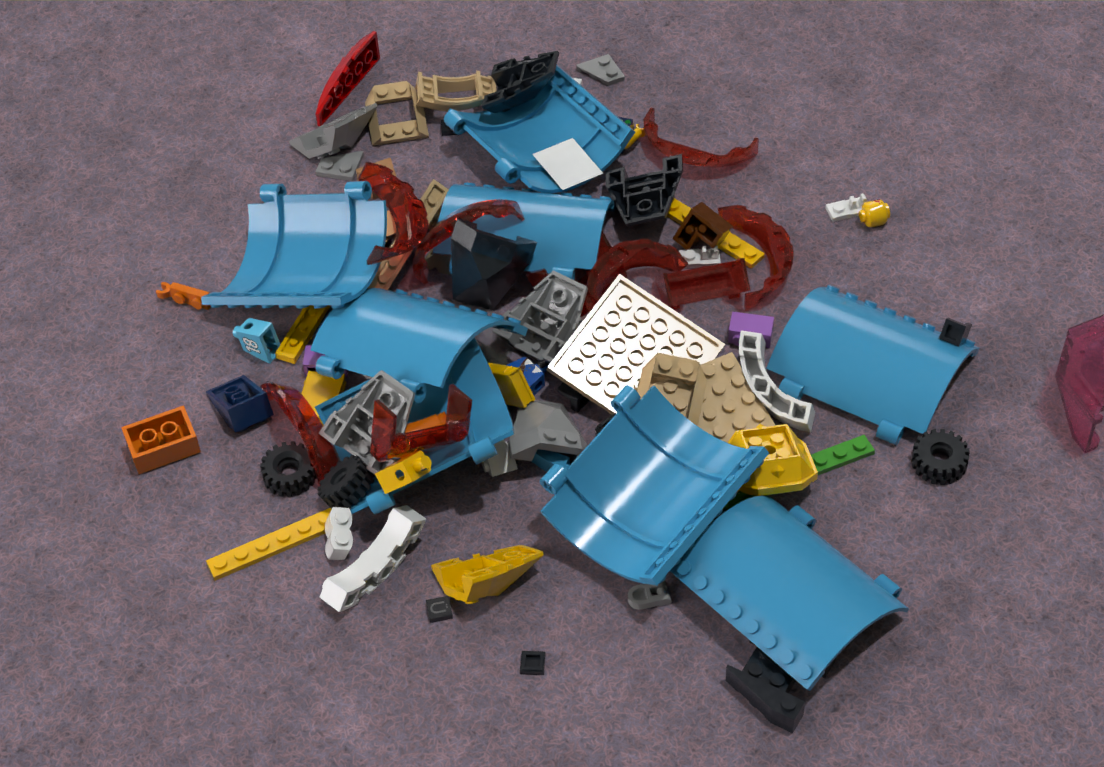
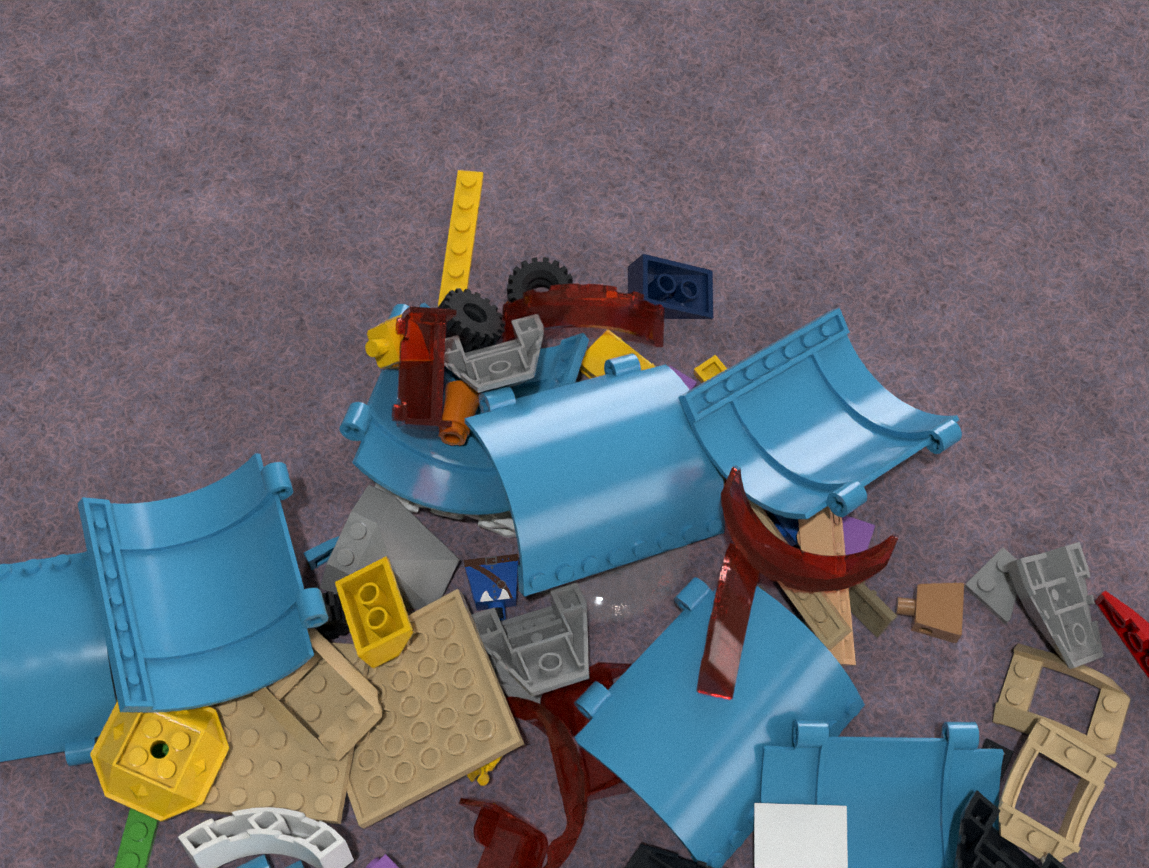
camera: 120 degrees right, 15 degrees up
(161, 439) = (662, 193): orange brick -> none
(183, 294) = (872, 308): orange plate -> none
(256, 337) = (744, 340): medium azure torso -> none
(338, 533) = (414, 288): white brick -> none
(376, 562) = (355, 299): white brick -> none
(439, 609) = (267, 341): black tile -> none
(484, 574) = (263, 395): yellow wedge -> none
(485, 264) = (651, 603): black wedge -> none
(512, 385) = (474, 541): yellow piece -> none
(532, 662) = (141, 388): black tile -> none
(591, 394) = (375, 612): none -> yellow slope

